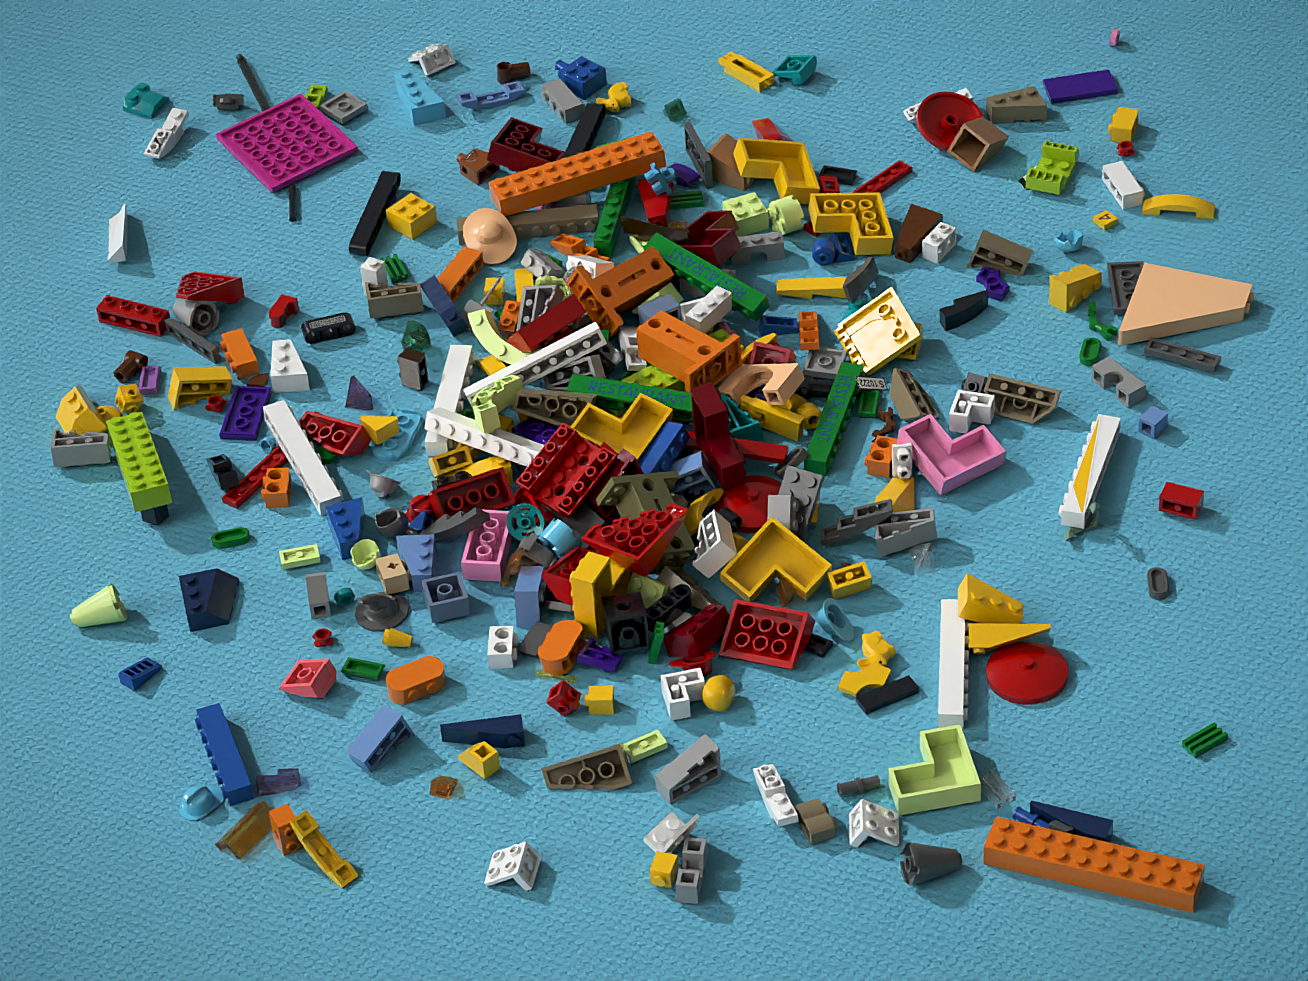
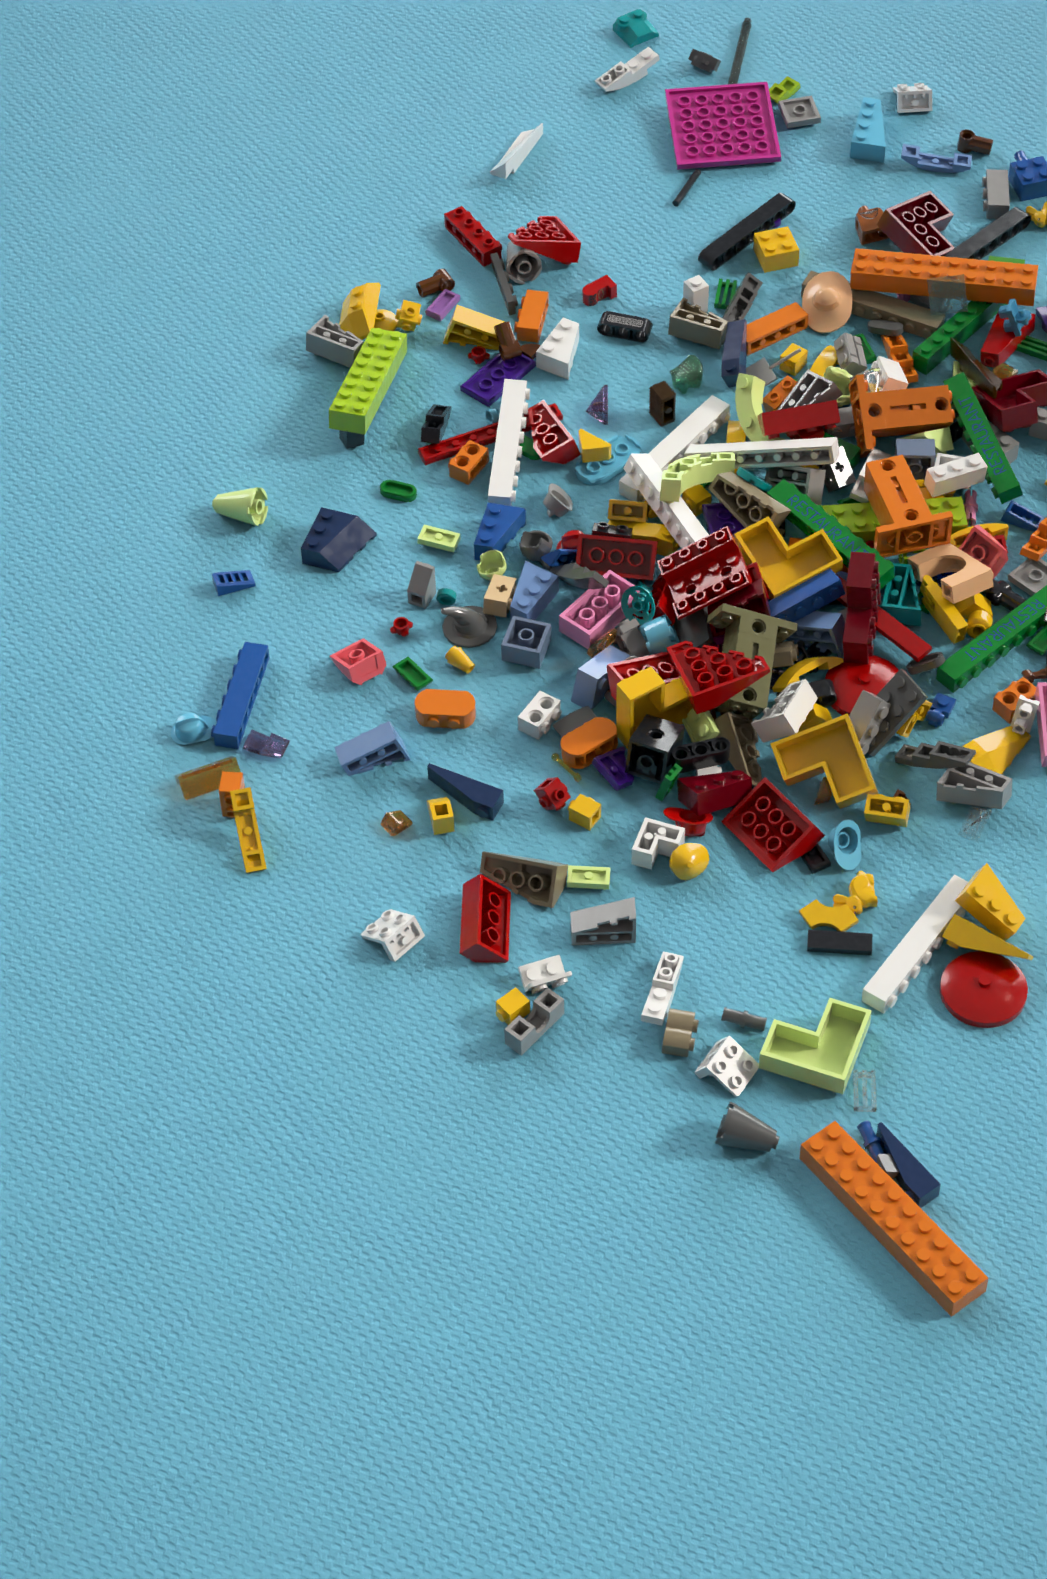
camera: 30 degrees right, 10 degrees up
(241, 383) = (508, 346): none -> reddish brown piece
(413, 263) = (742, 299): none -> dark grey slope
(544, 385) = (753, 479): none -> teal tile
(552, 235) = (885, 327): none -> dark grey tile
(584, 820) = (485, 921): none -> red slope
(592, 185) = (947, 294): none -> clear light blue hinge
(829, 492) = (941, 708): none -> blue plate

